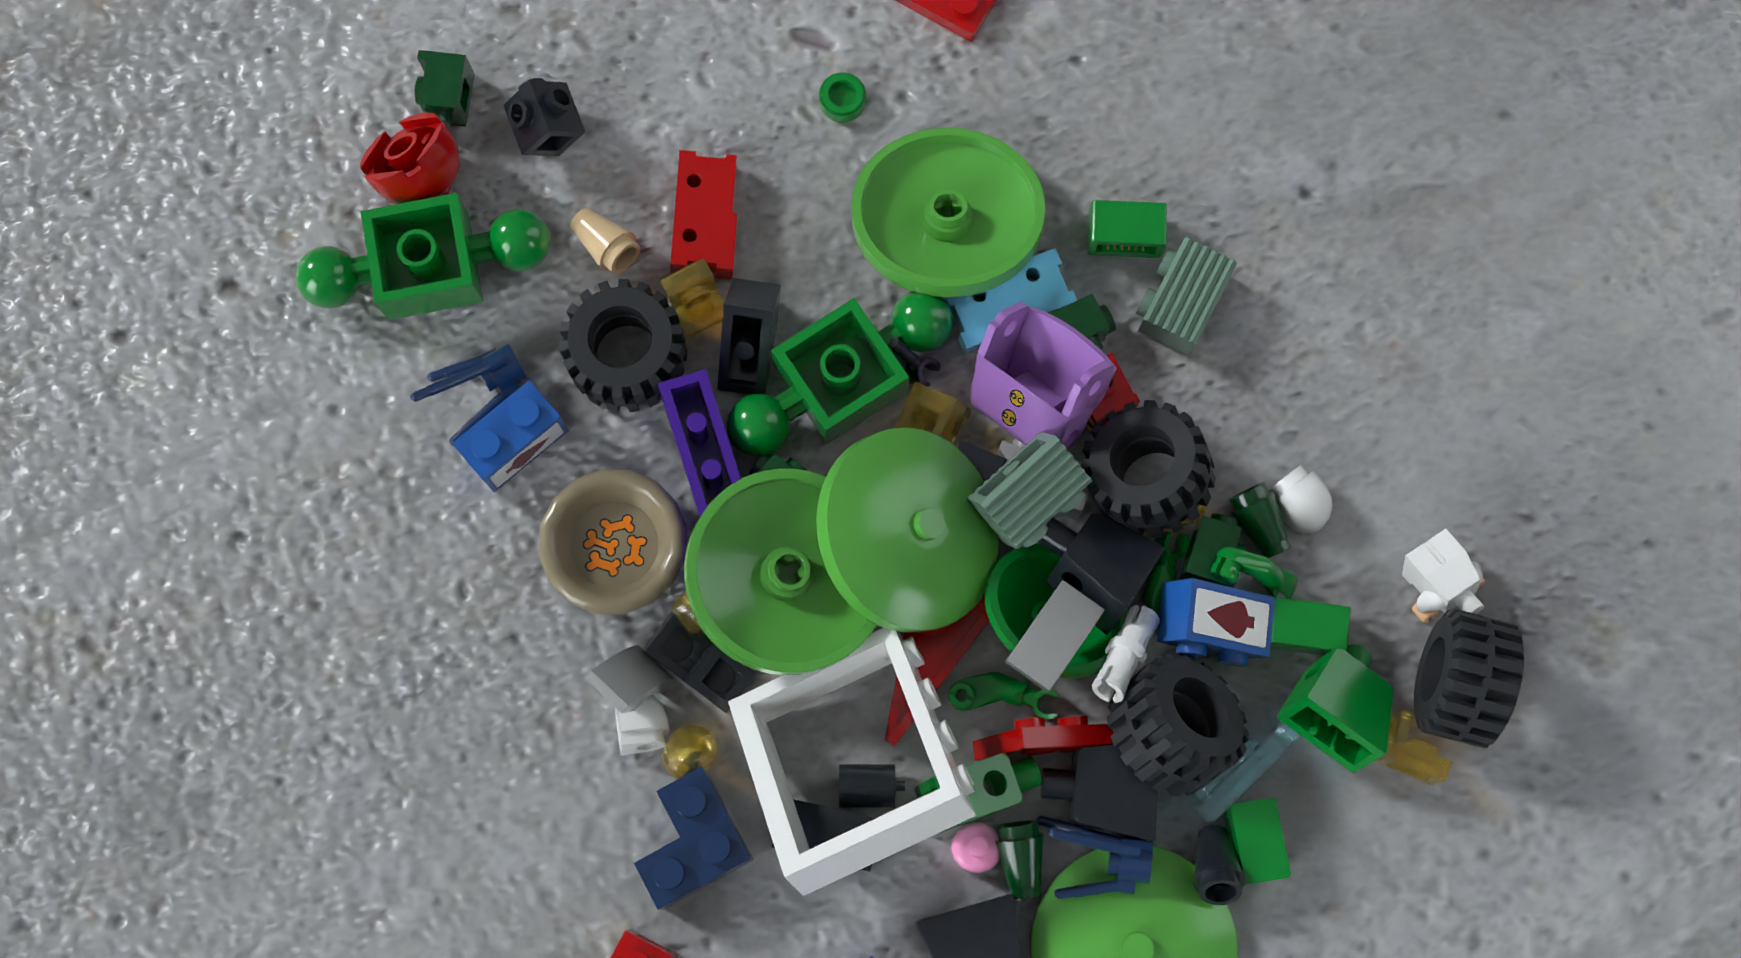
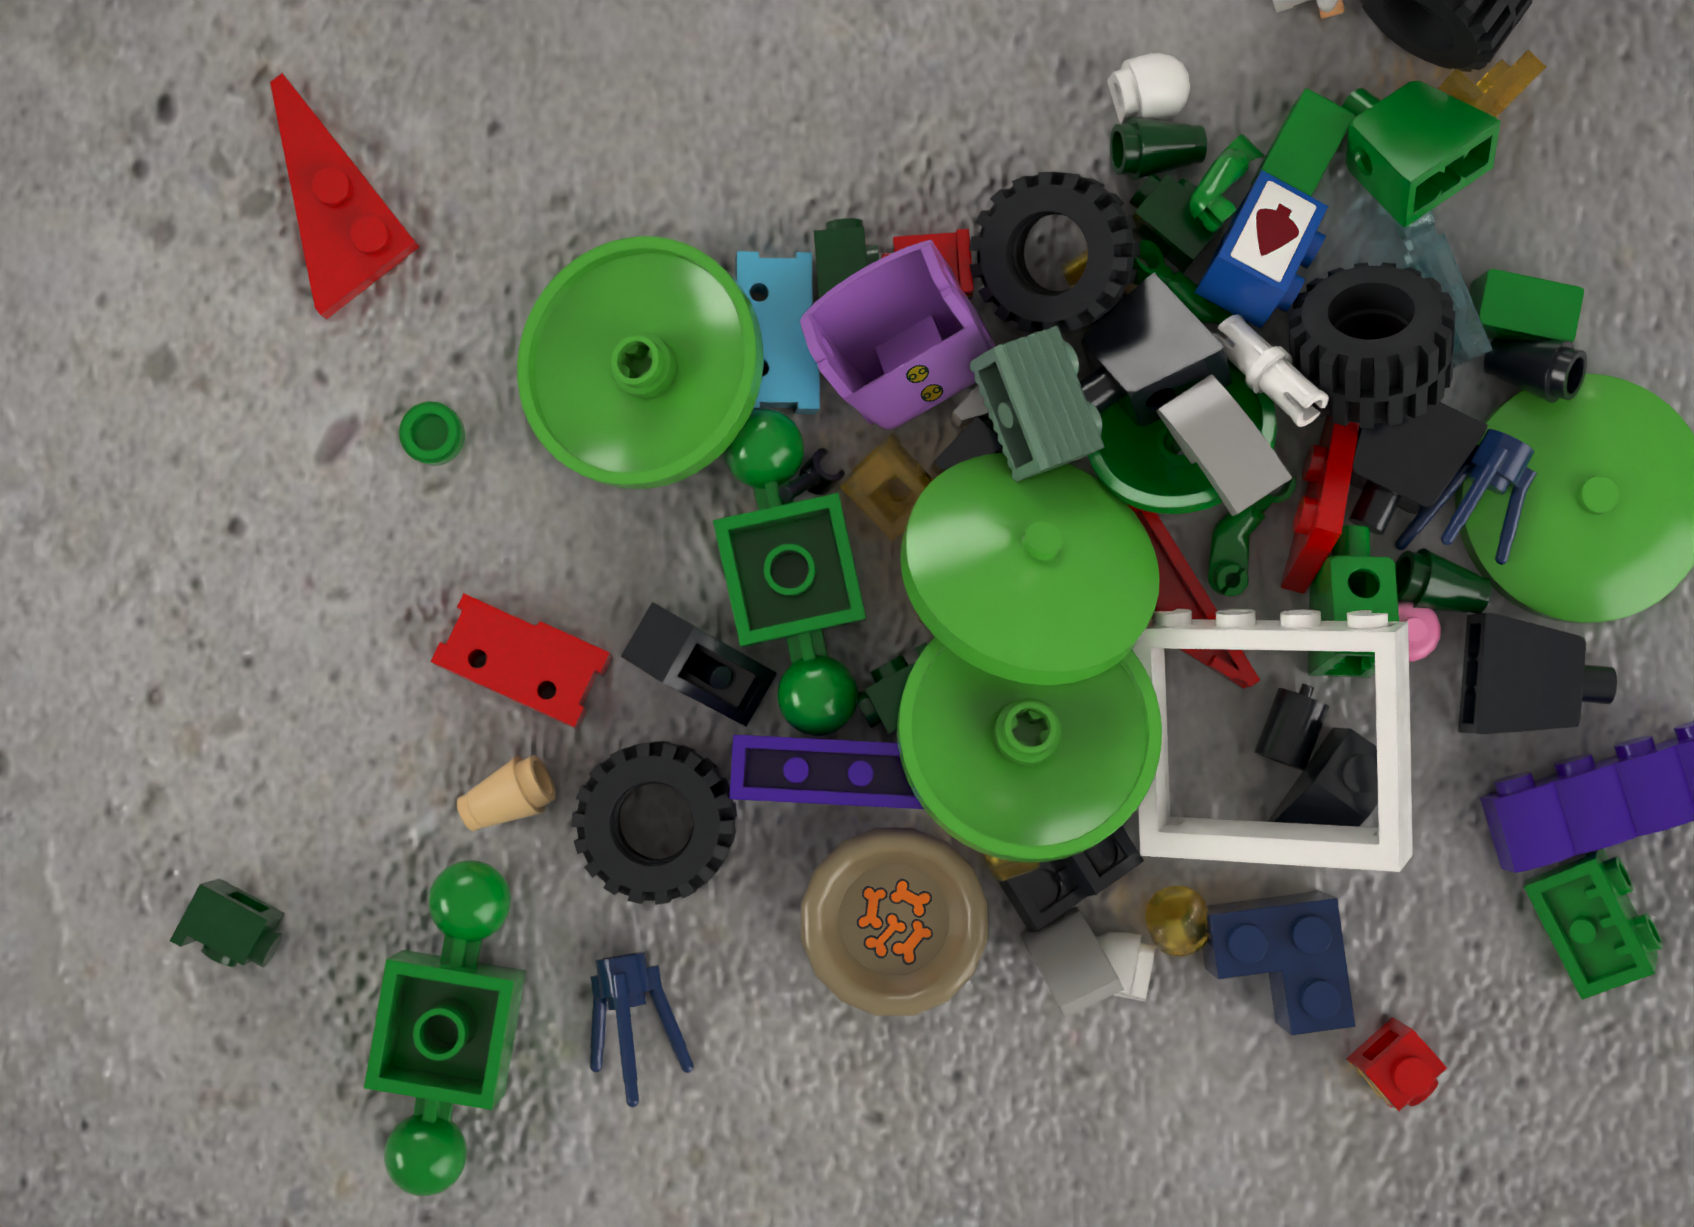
camera: 65 degrees left, 10 degrees up
(414, 162) = (316, 999): red cylinder -> none
(511, 436) = (715, 998): blue brick -> none
(544, 117) = (319, 814): black brick -> none
(694, 297) = (629, 712): clear yellow bracket -> none
(1127, 229) = (741, 155): green piece -> none
(1186, 296) = (852, 120): sand green brick -> none

